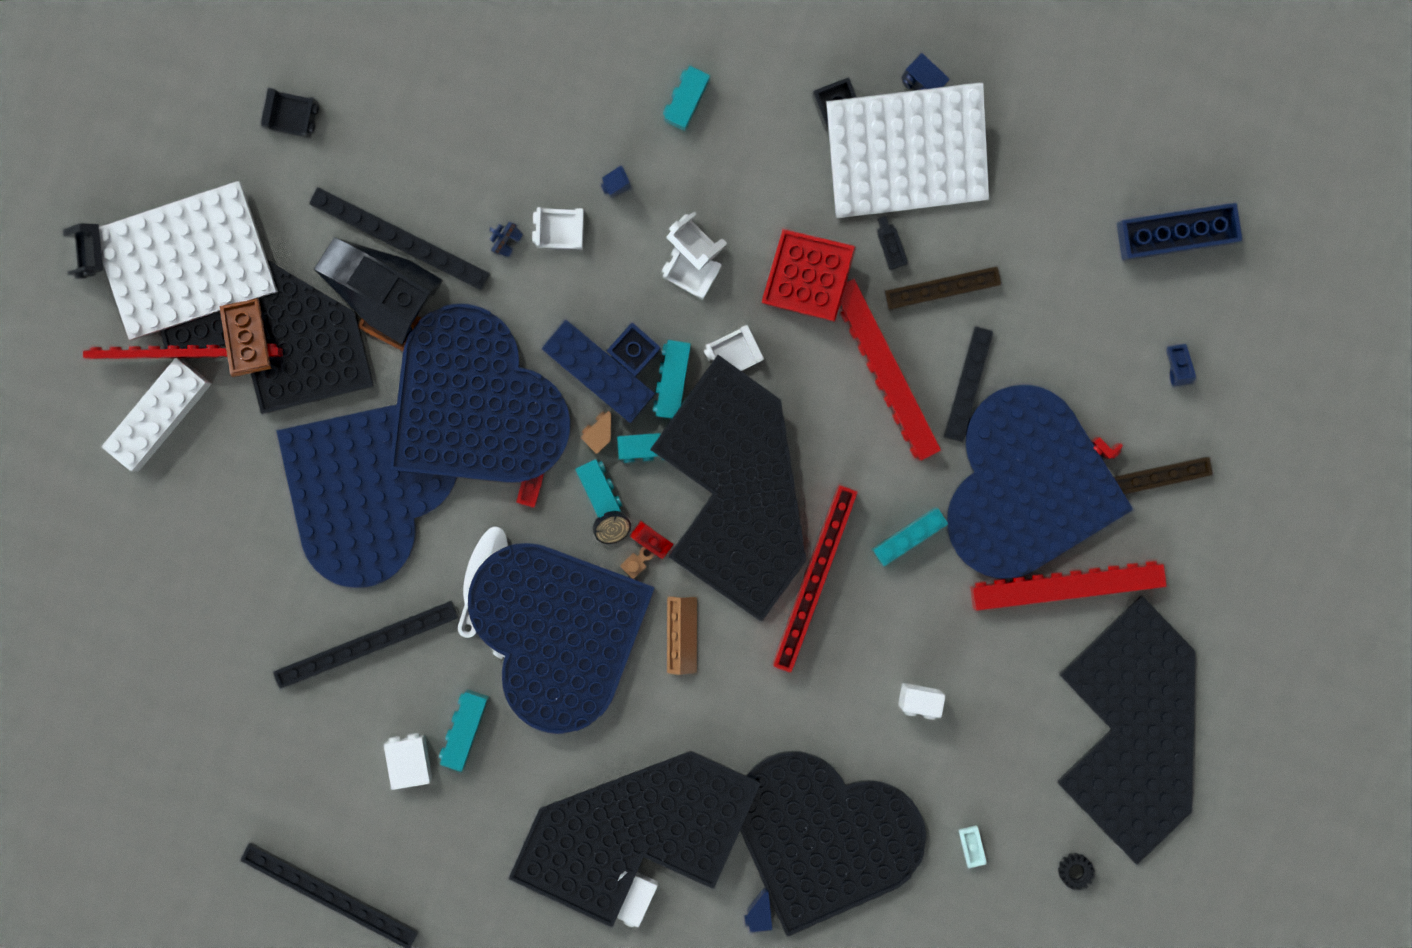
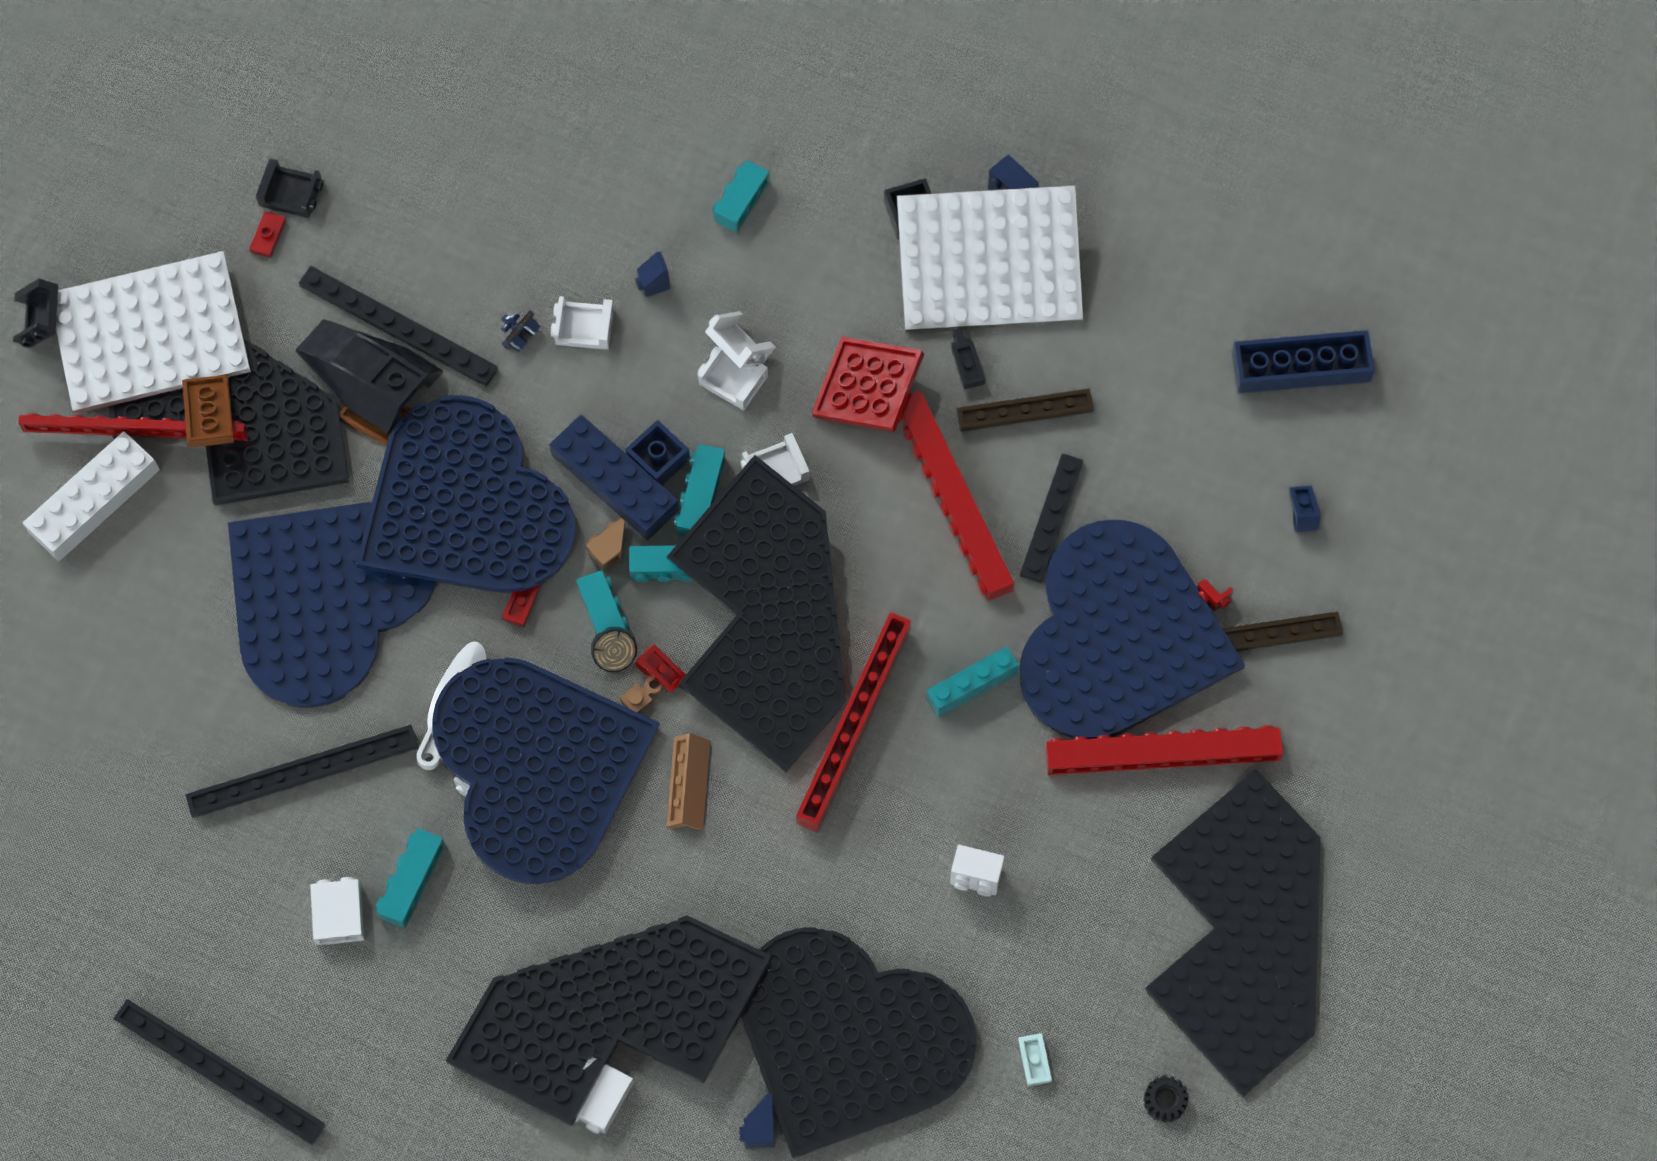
camera: 10 degrees right, 20 degrees down
(276, 157) = (267, 234): none -> red plate

